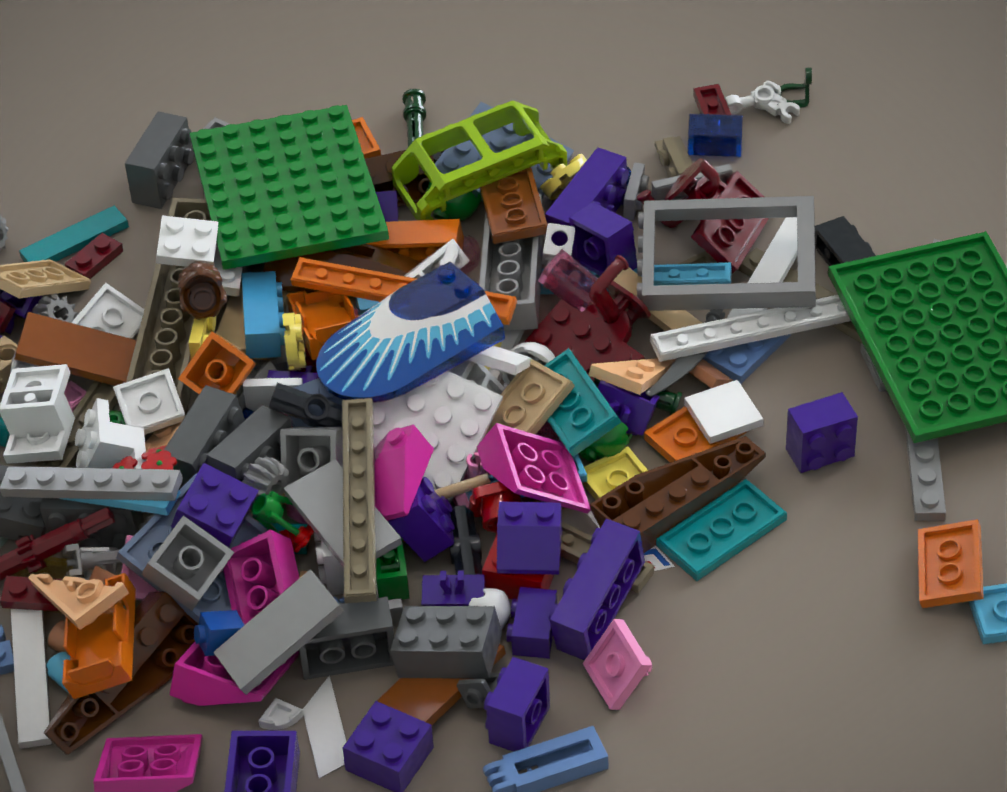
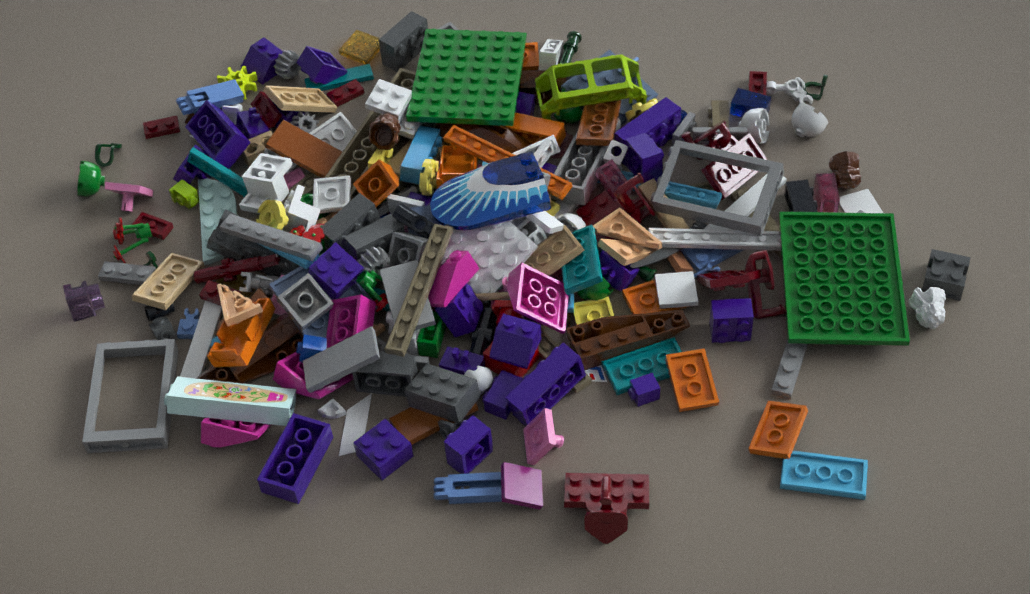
camera: 20 degrees right, 5 degrees up
(40, 225) = (320, 65): none -> dark purple slope
(75, 442) = (272, 214): none -> light yellow plate
(91, 184) = (360, 47): none -> clear yellow tile
(123, 740) = (230, 401): none -> light aqua brick
(390, 130) = (550, 53): none -> white slope
(616, 342) = (625, 228): none -> light nougat wing
(618, 740) = (521, 485): none -> tile
(736, 152) = (756, 123): none -> white cylinder
(737, 560) = (644, 389): none -> dark purple brick
(752, 373) = (708, 268): none -> medium blue hand
(752, 725) = (606, 500): none -> dark red plate
(799, 529) = (692, 380): none -> orange plate
(807, 137) = (808, 122): none -> white cylinder
(826, 366) = (751, 276): none -> dark red plate
(877, 227) = (826, 192): none -> clear pink brick
(890, 190) = (846, 169): none -> reddish brown hair
(922, 231) = (858, 201): none -> white sticker

